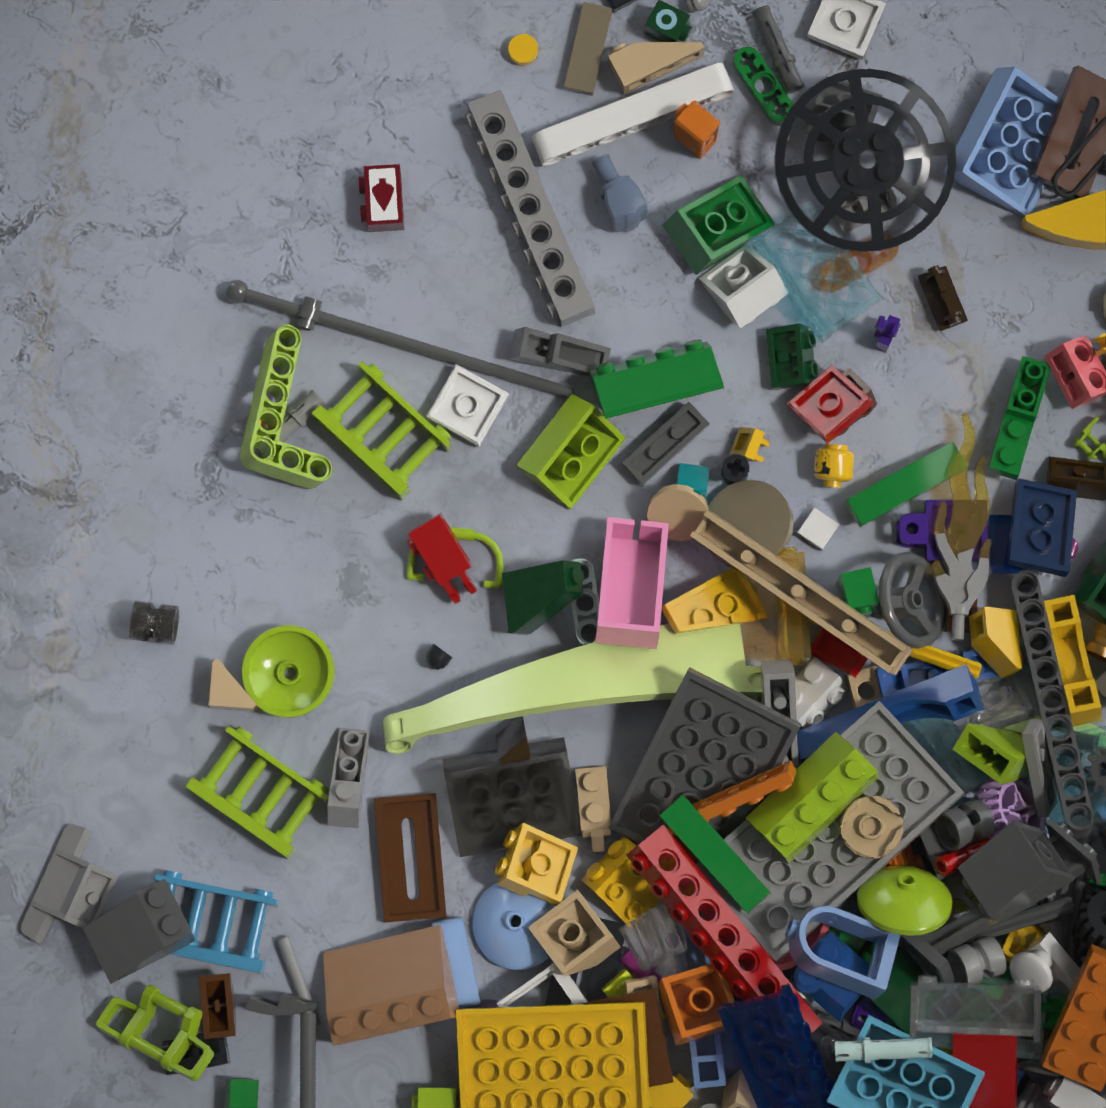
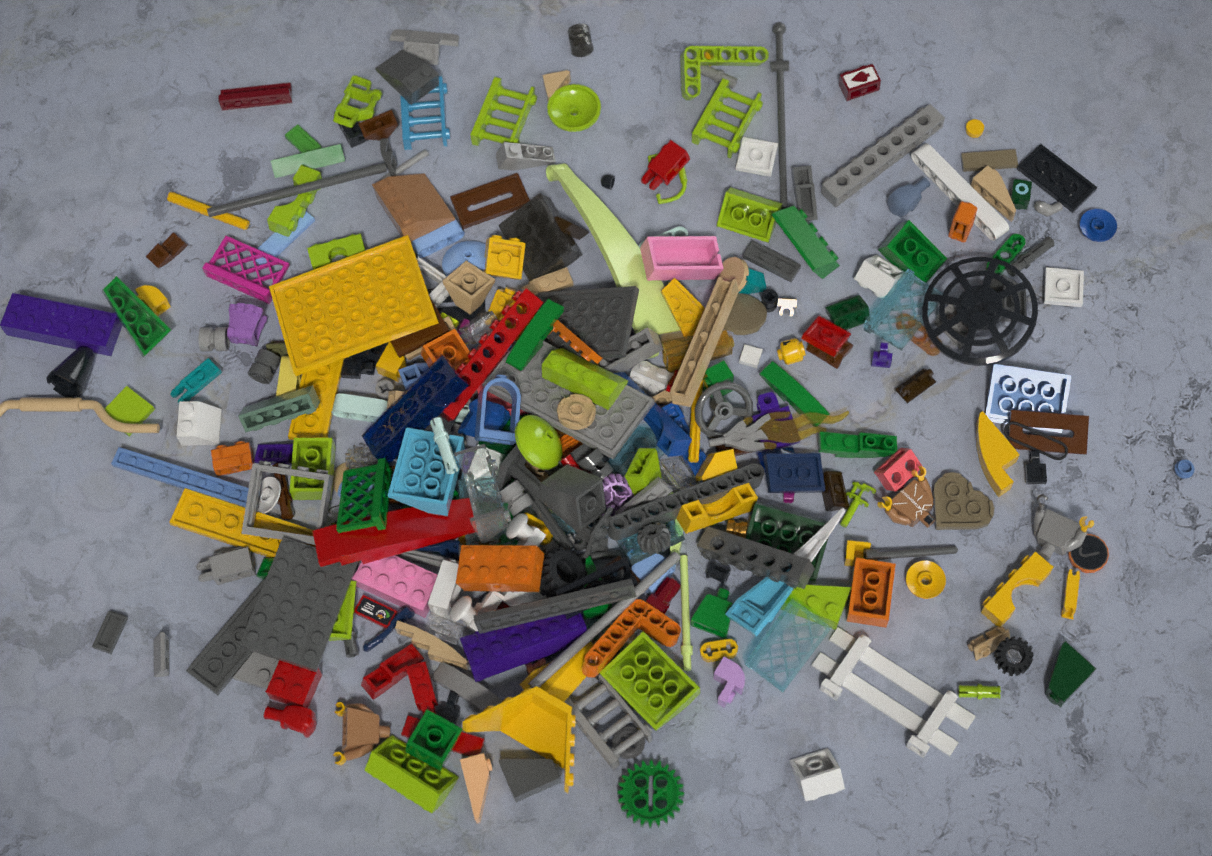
camera: 75 degrees right, 15 degrees down
(539, 593) = (659, 217): dark green slope -> none

